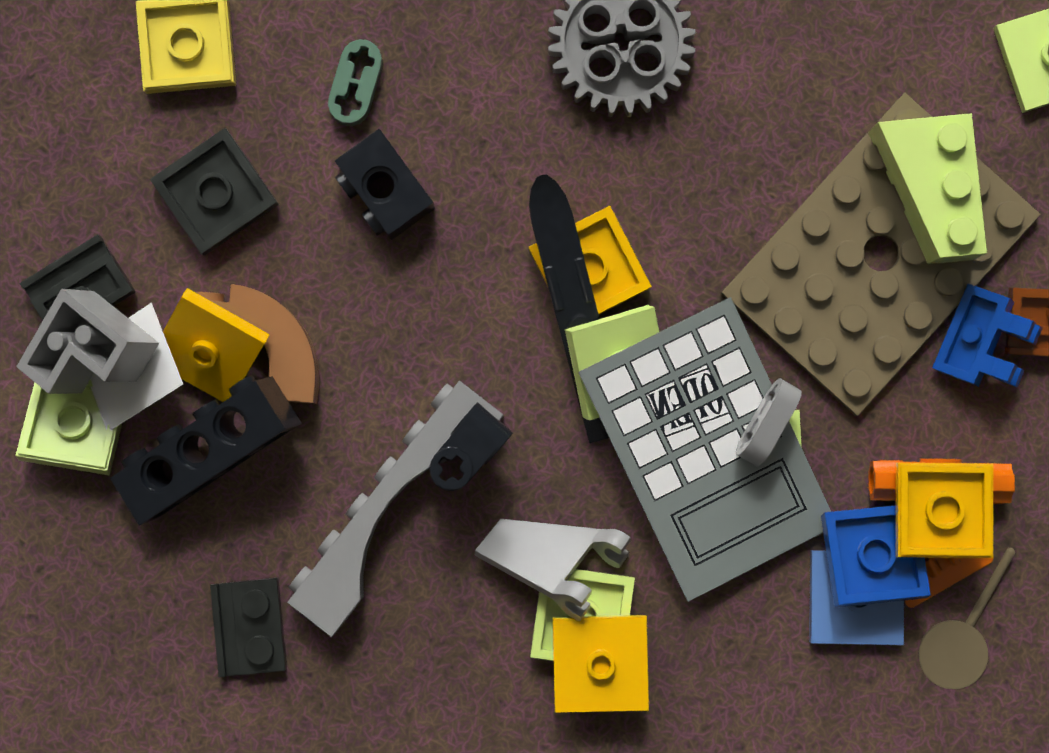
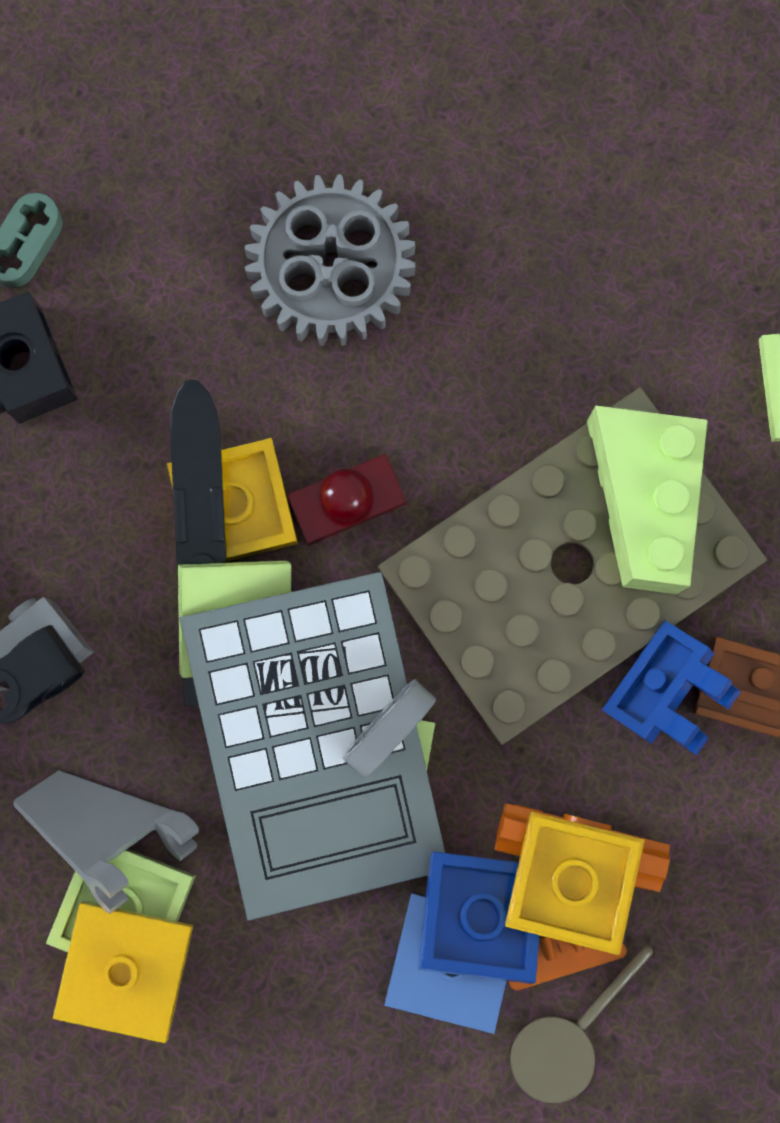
camera: 15 degrees right, 5 degrees down
(682, 242) = (347, 499): none -> dark red tile

